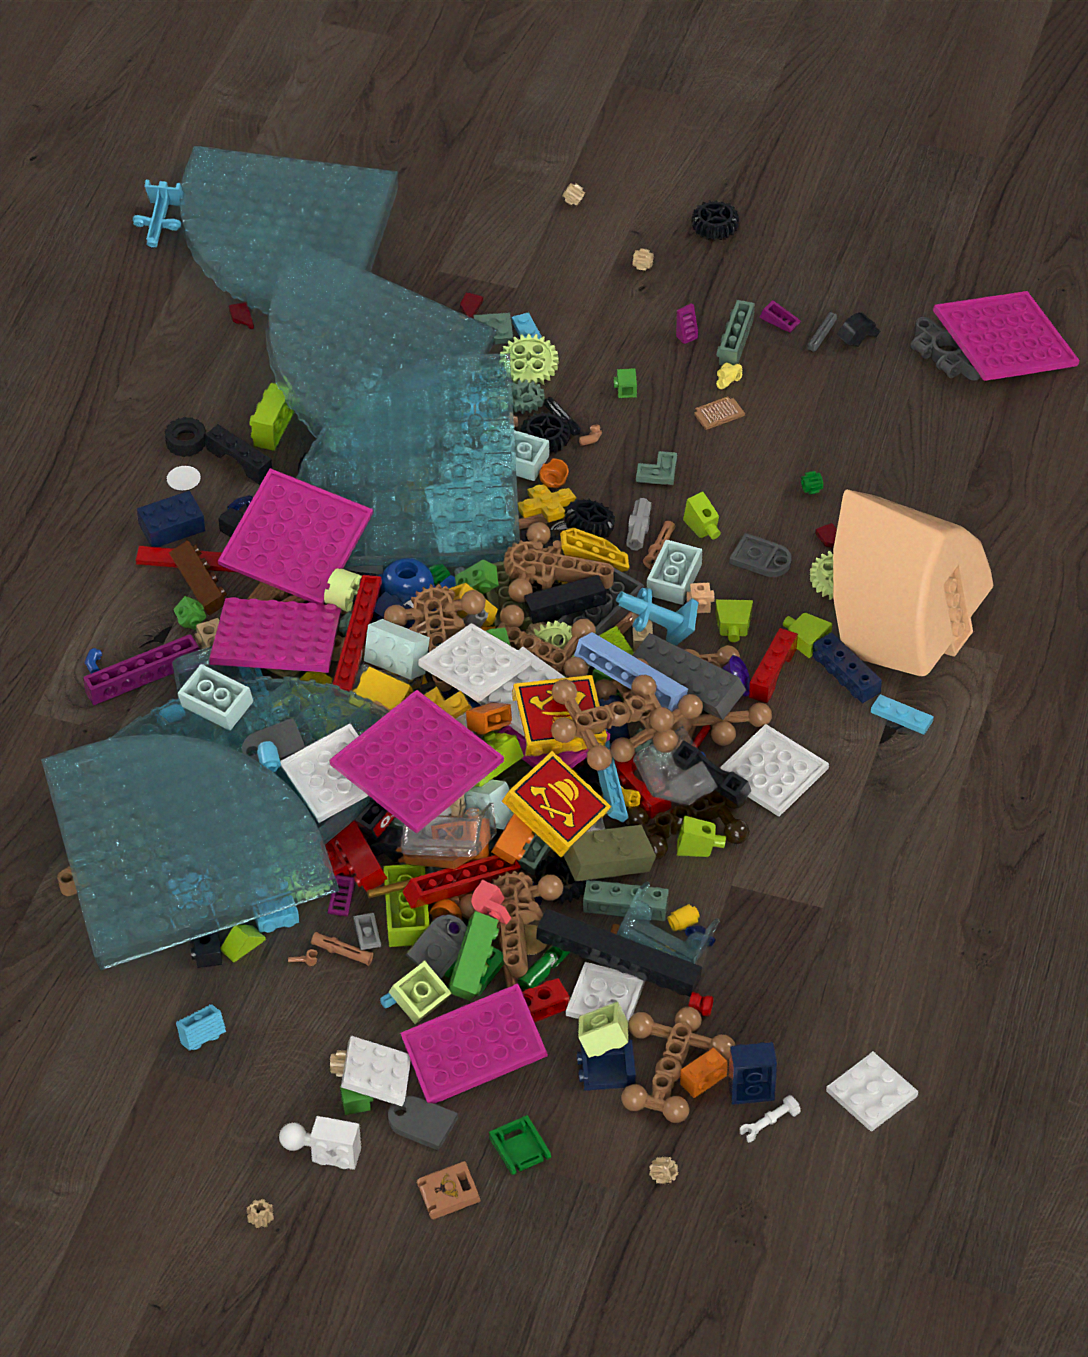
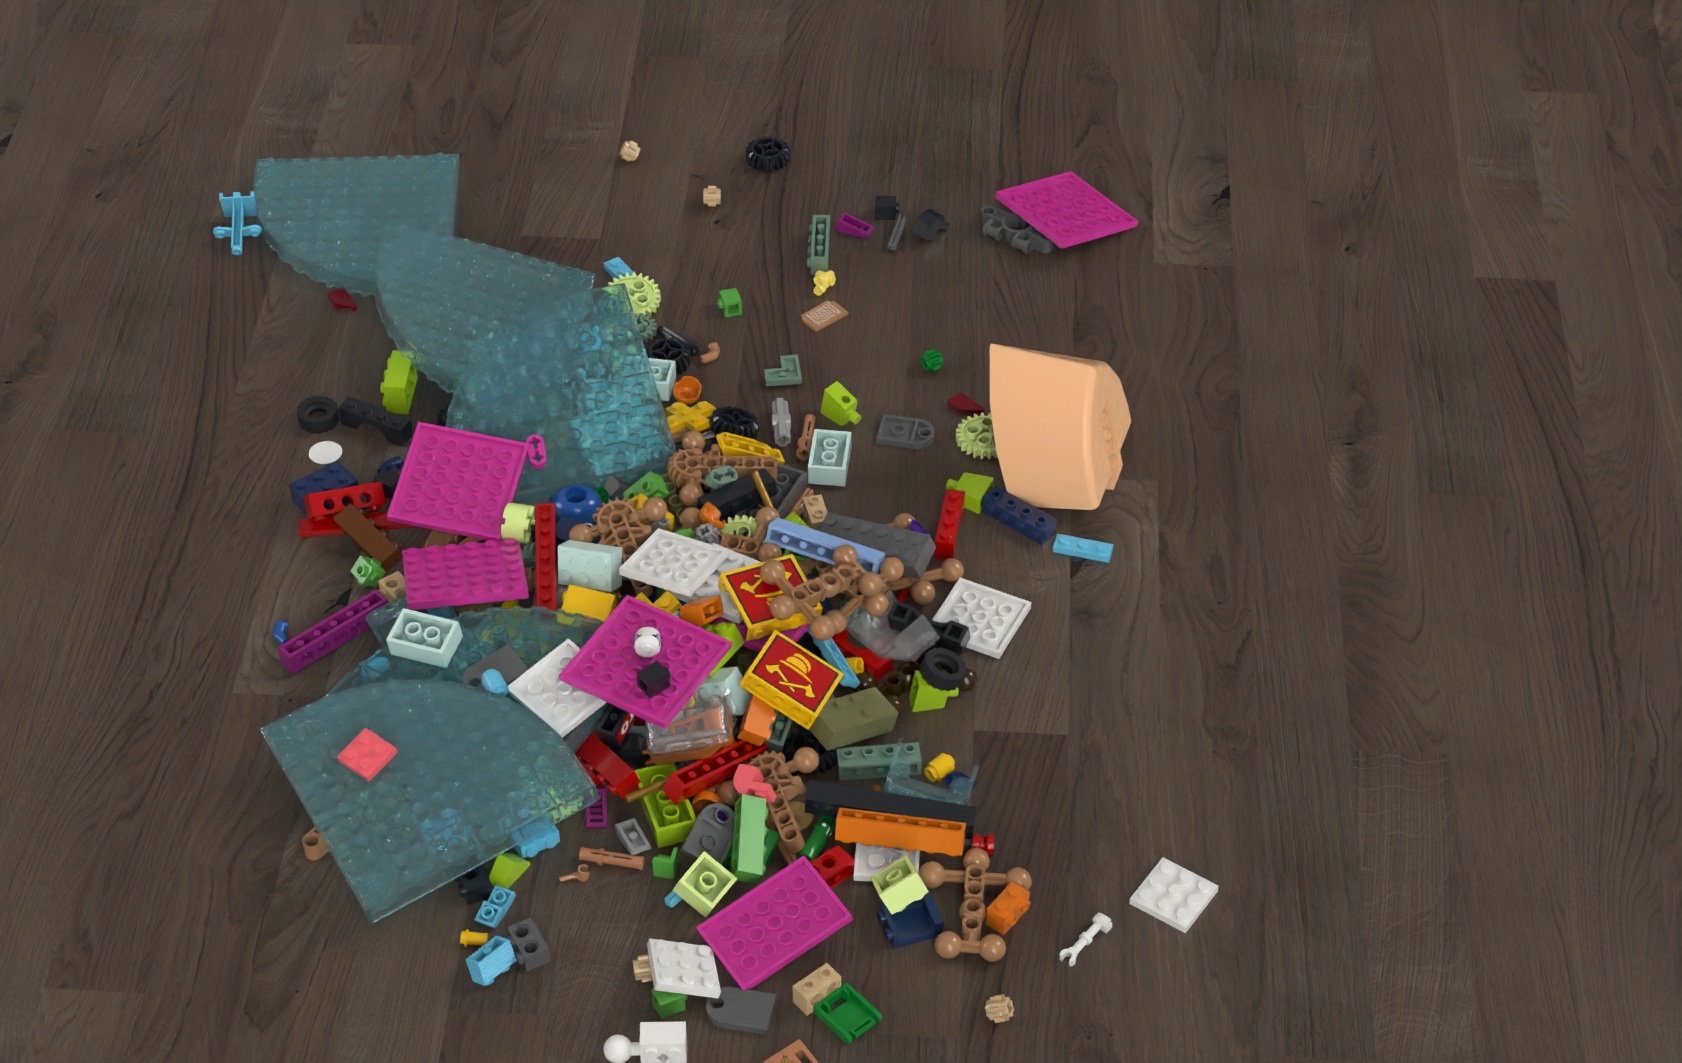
camera: 15 degrees left, 5 degrees down
(131, 805) = (367, 754): none -> coral plate
(192, 1002) = (473, 938): none -> yellow pin
(215, 530) = (315, 501): none -> red brick
(224, 973) = (496, 907): none -> medium azure slope
(242, 1018) = (528, 944): none -> dark grey brick
(383, 518) = (539, 451): none -> dark pink beam
(391, 965) = (666, 866): none -> bright green panel
(416, 782) = (653, 679): none -> black brick
(420, 743) = (647, 642): none -> white head
(452, 566) = (616, 486): none -> dark grey slope
(470, 304) = (561, 256): dark red tile -> none
(495, 1114) = (815, 988): none -> tan brick
(501, 322) = (596, 267): sand green plate -> none
(518, 638) = (707, 534): none -> light grey gear
(528, 619) = (711, 514): none -> orange hair
(553, 581) = (731, 476): none -> sand green beam
(590, 604) = (761, 489): none -> pearl gold bar
(620, 977) = (900, 831): none -> orange brick
(678, 623) = (848, 501): medium azure piece -> none
(686, 326) = (771, 244): magenta slope -> none
(701, 593) = (861, 476): light nougat brick -> none
(703, 828) = (947, 659): none -> black tyre
(733, 618) = (897, 489): lime torso -> none
(752, 1073) = (1059, 897): dark blue brick -> none
(819, 301) = (886, 207): none -> black brick

